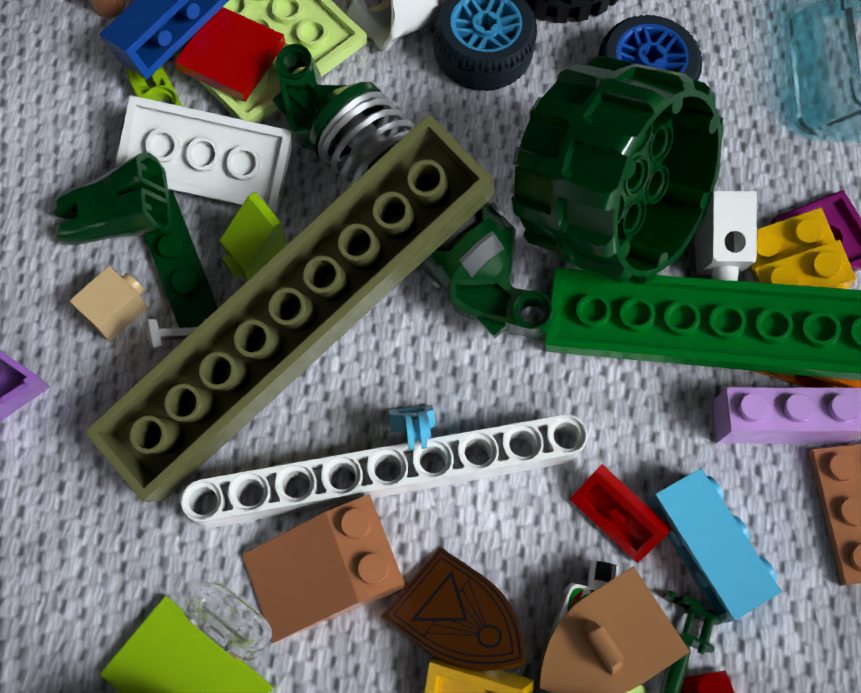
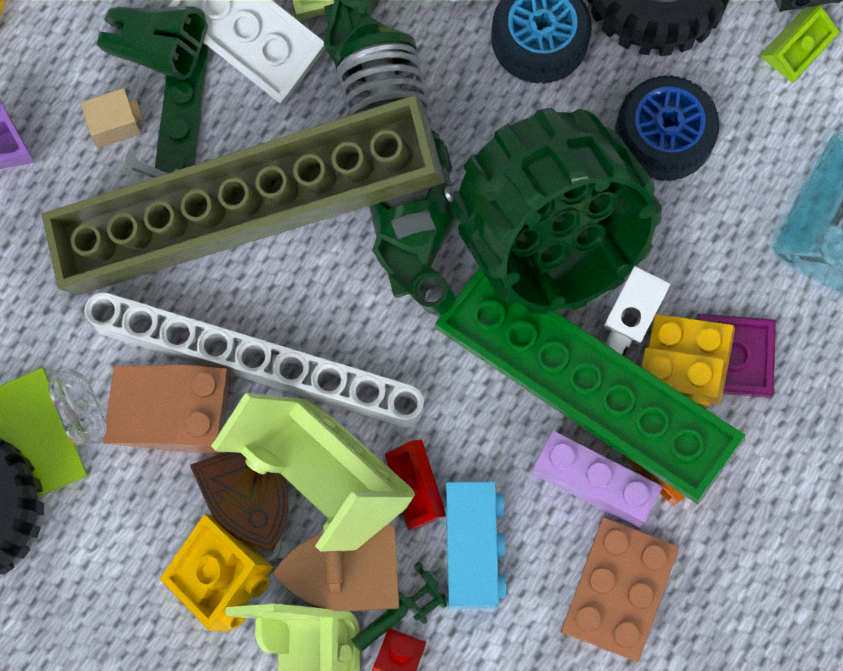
camera: 30 degrees right, 5 degrees up
(252, 238) = (244, 121): lime slope -> none
(414, 423) = (292, 333): medium azure piece -> none
(526, 543) = (320, 462): none -> yellowish green windscreen

